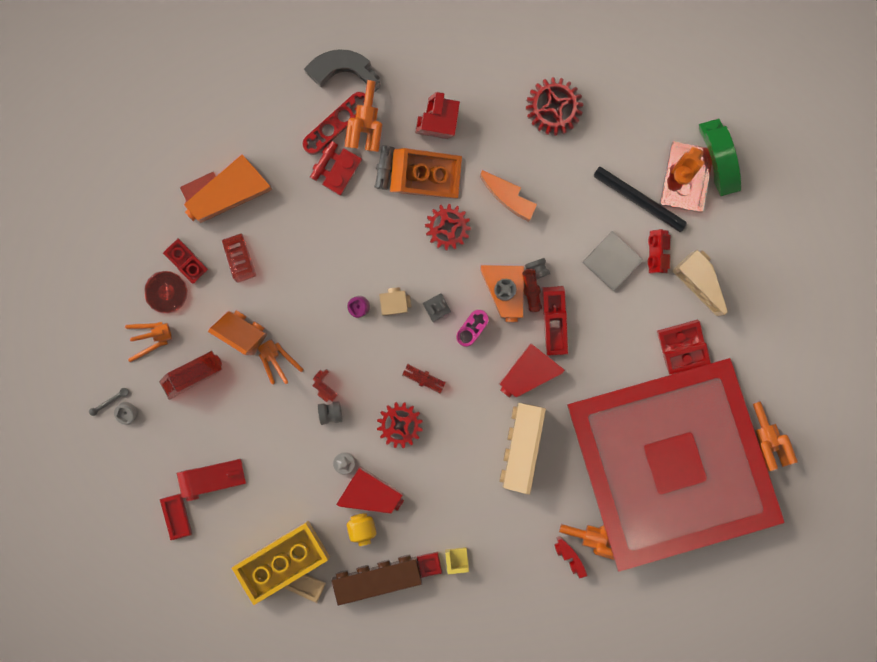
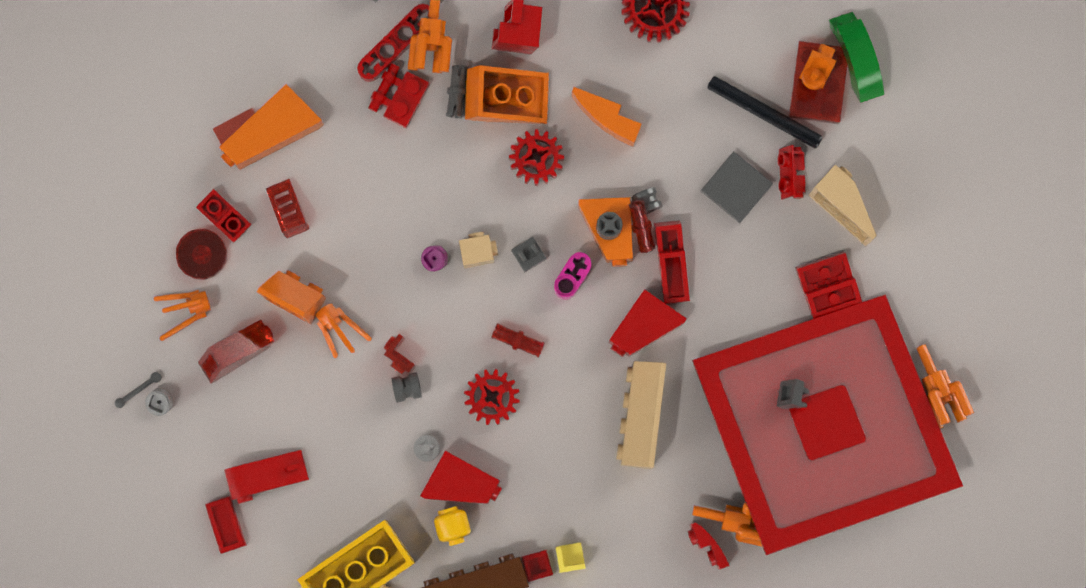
camera: 10 degrees left, 5 degrees down
(647, 439) = (791, 394): none -> dark grey tile

